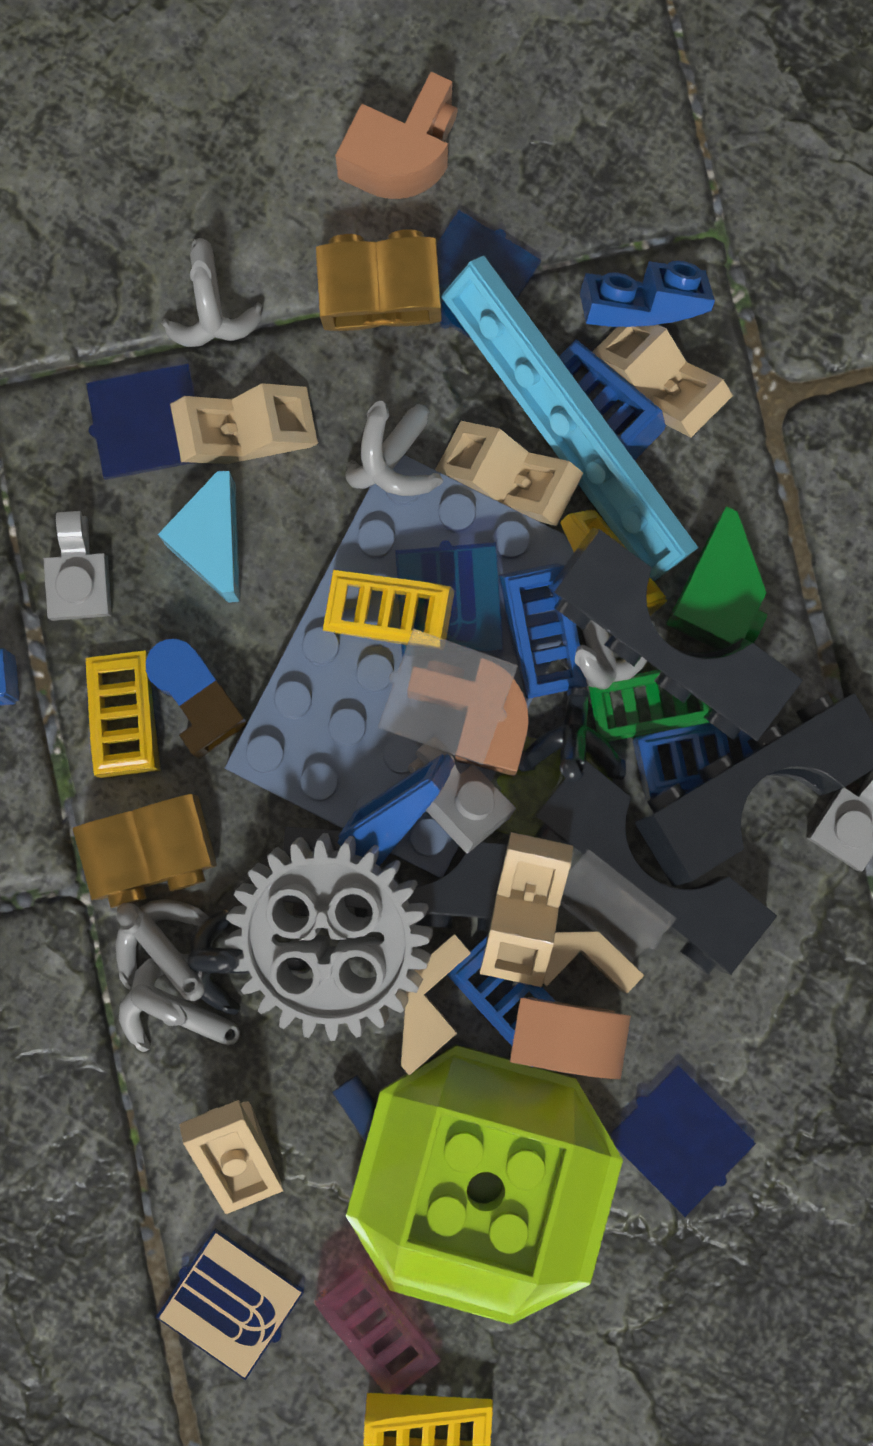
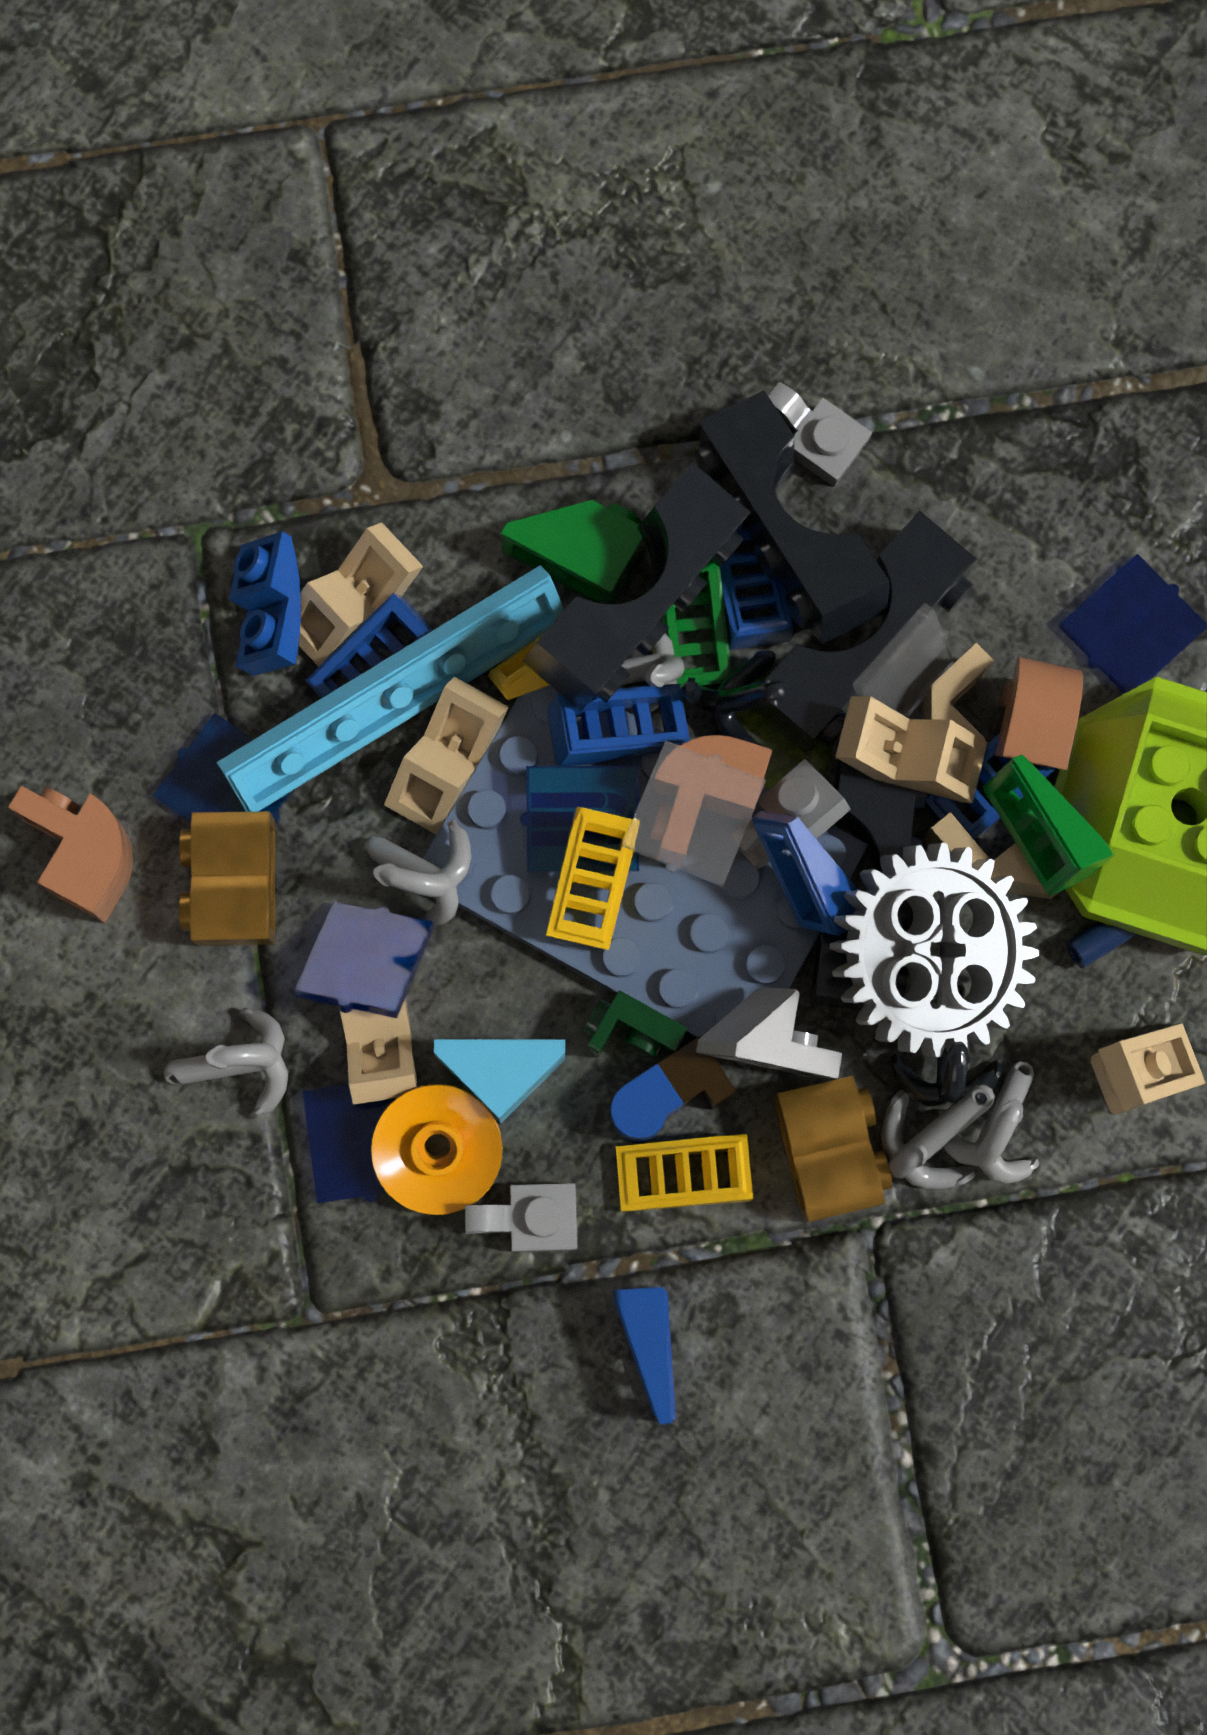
camera: 90 degrees left, 5 degrees down
(109, 479) = (429, 1181): none -> light orange dish
(240, 777) = (764, 1036): none -> light grey slope
(253, 670) = (645, 1027): none -> dark green bracket
(306, 407) = (364, 959): none -> clear blue piece
(451, 1044) = (1046, 827): none -> green slope

